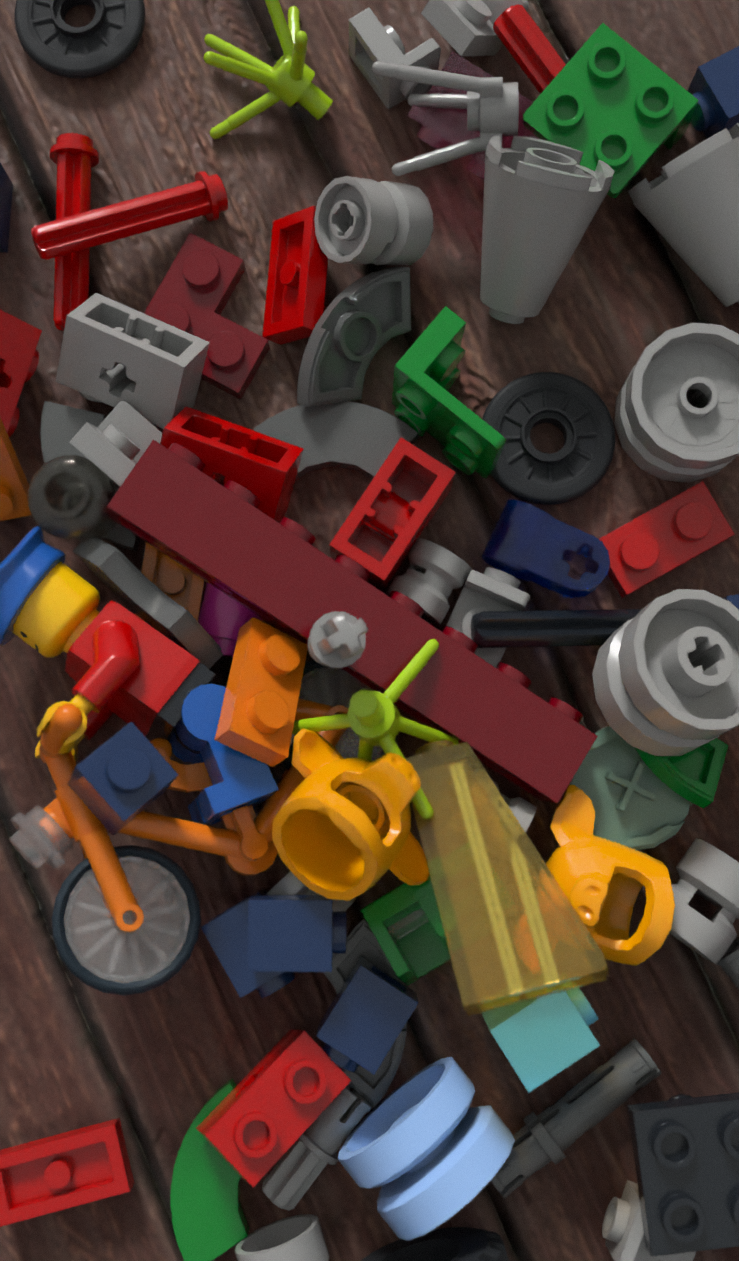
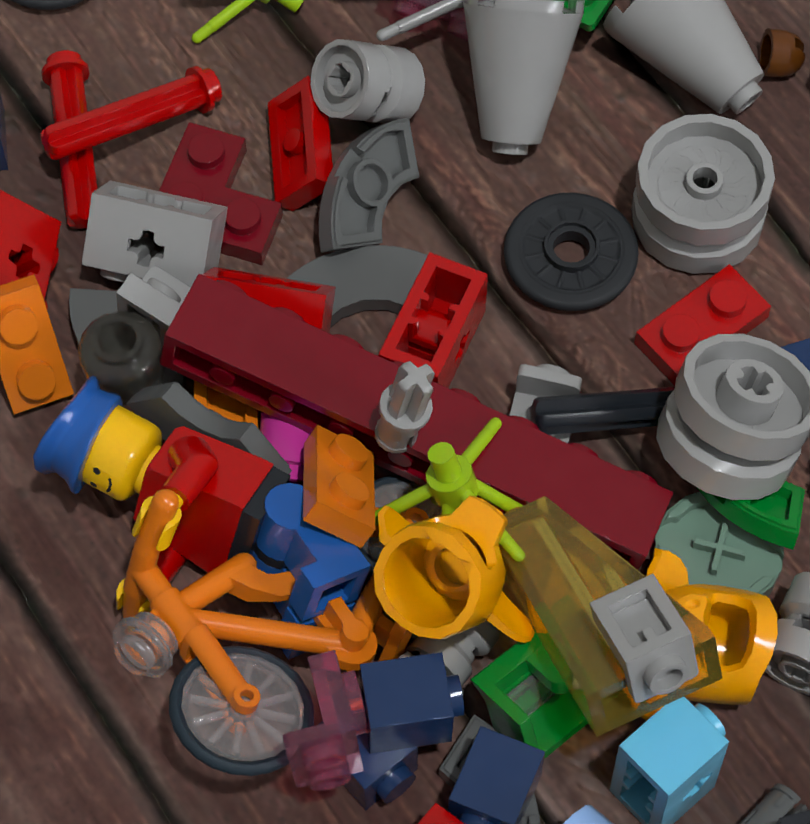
camera: 10 degrees left, 20 degrees down
(122, 778) = (219, 567): dark blue brick -> none
(214, 952) = (329, 751): none -> clear pink bracket
(427, 406) = (461, 229): green bracket -> none
(431, 578) = (486, 376): light grey wheel -> none
(531, 548) = (591, 343): clear blue piece -> none
(535, 958) = (646, 638): none -> light grey bracket

